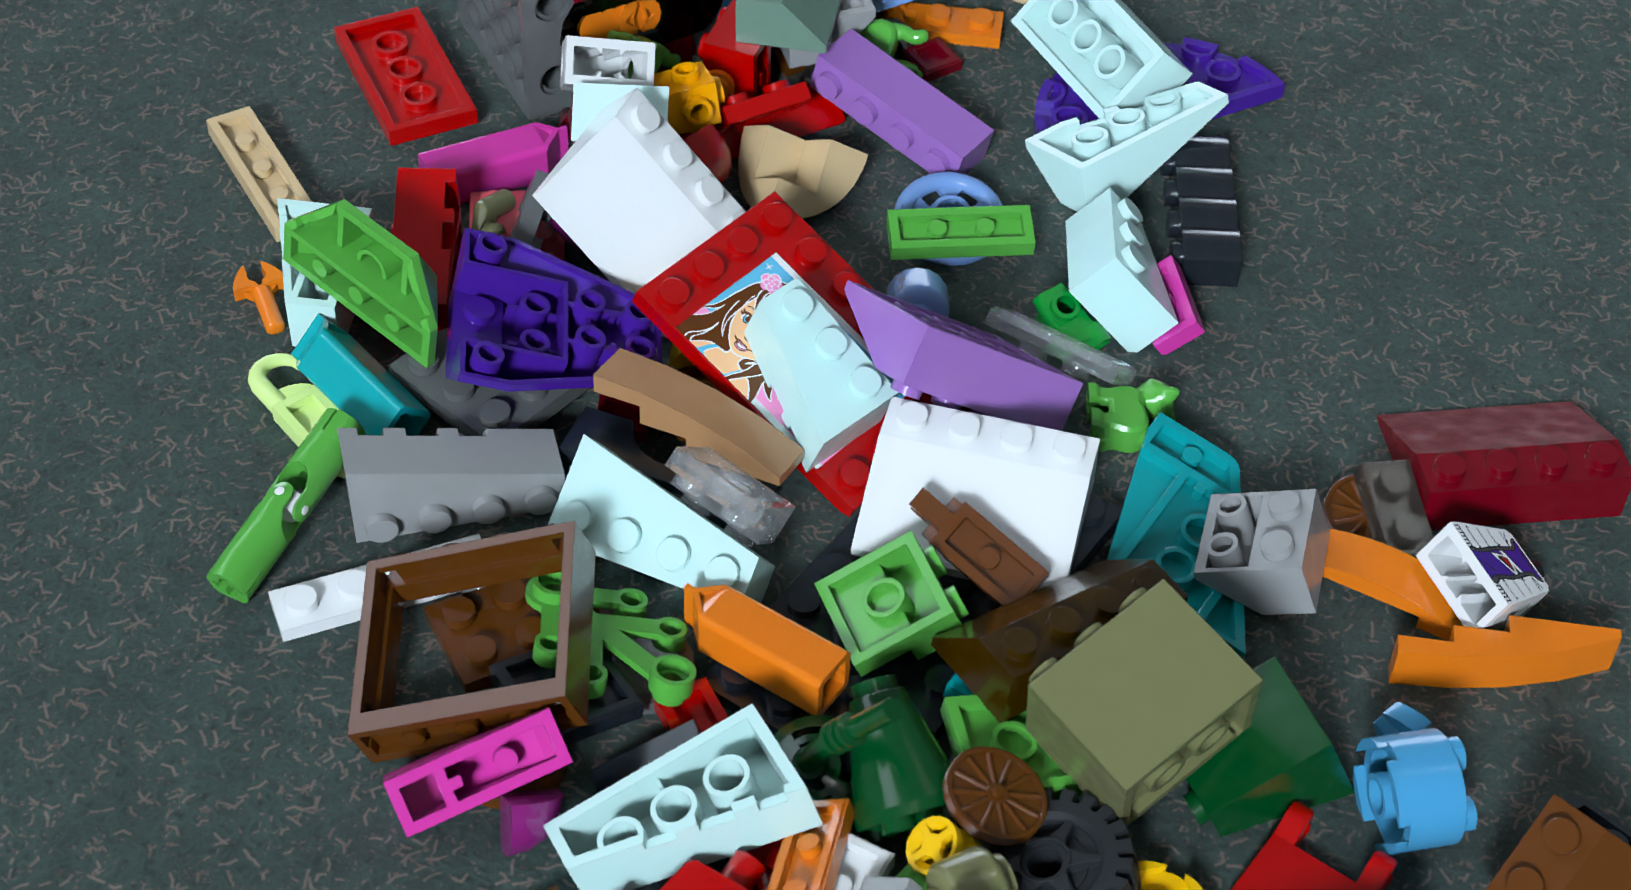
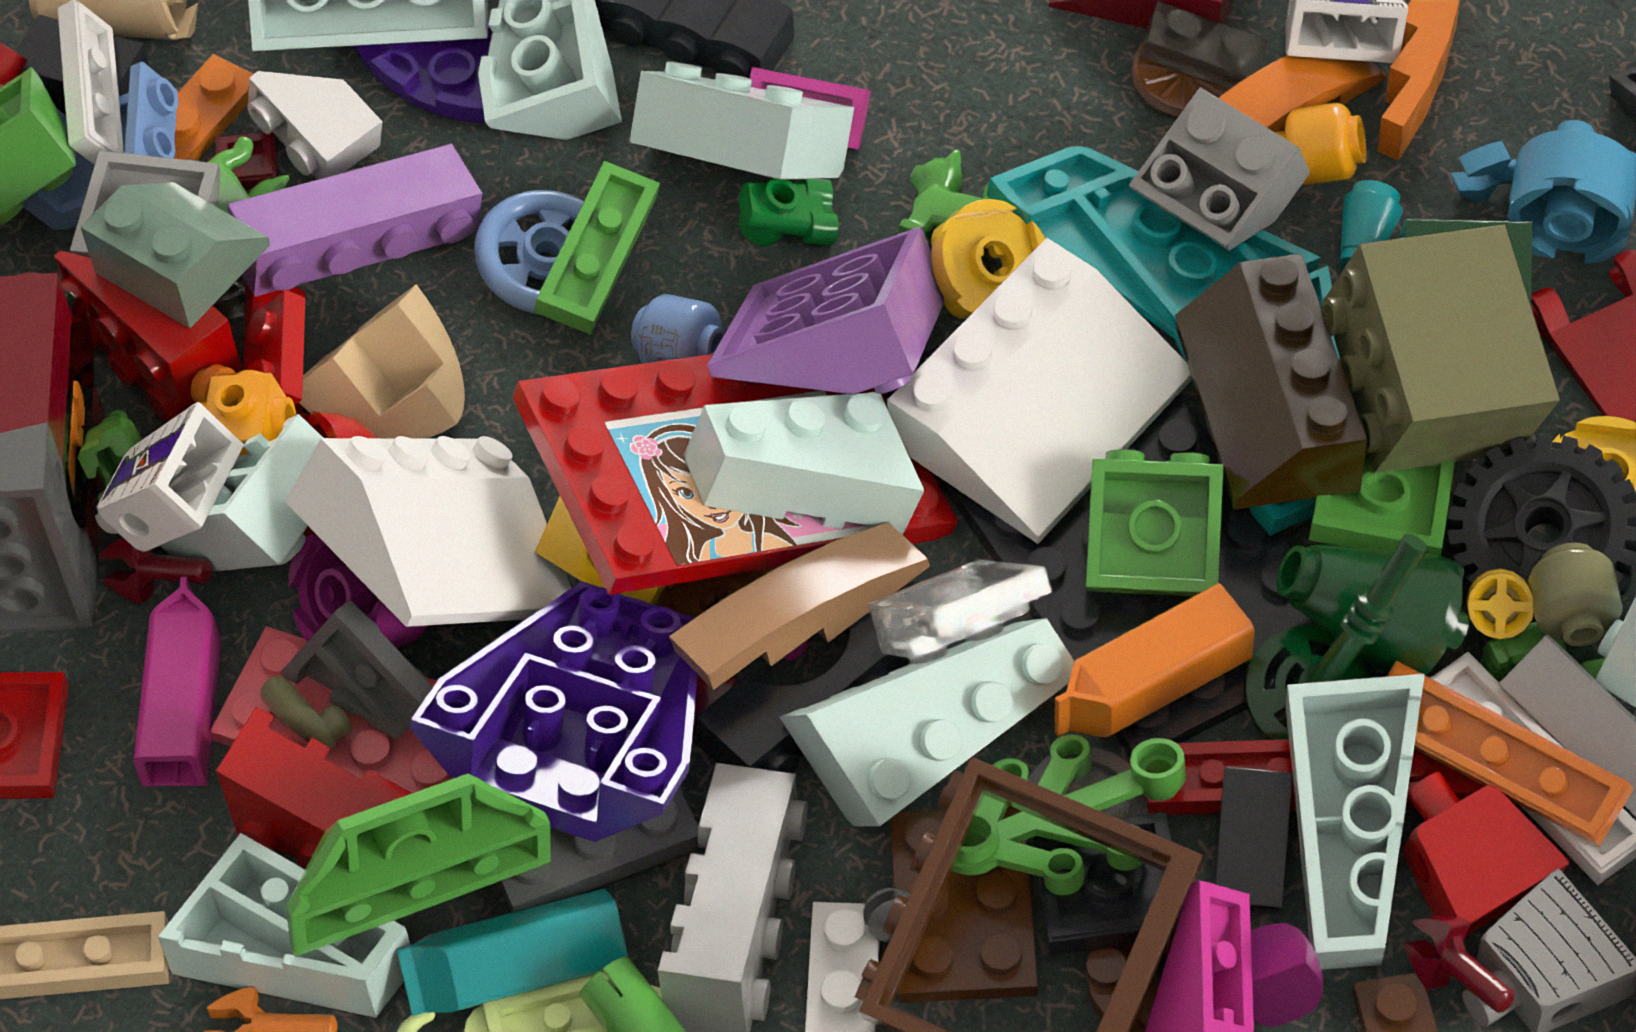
camera: 60 degrees left, 10 degrees up
(974, 68) = (316, 120): none -> white slope
(978, 549) = (1125, 415): reddish brown hinge -> none
(995, 796) = (1464, 527): reddish brown wheel -> none
(1077, 356) = (858, 219): clear plate -> none
(1112, 421) = (959, 248): none -> yellow plate
(1310, 670) = (1368, 216): none -> teal cone
(1355, 616) = (1328, 140): none -> light orange head

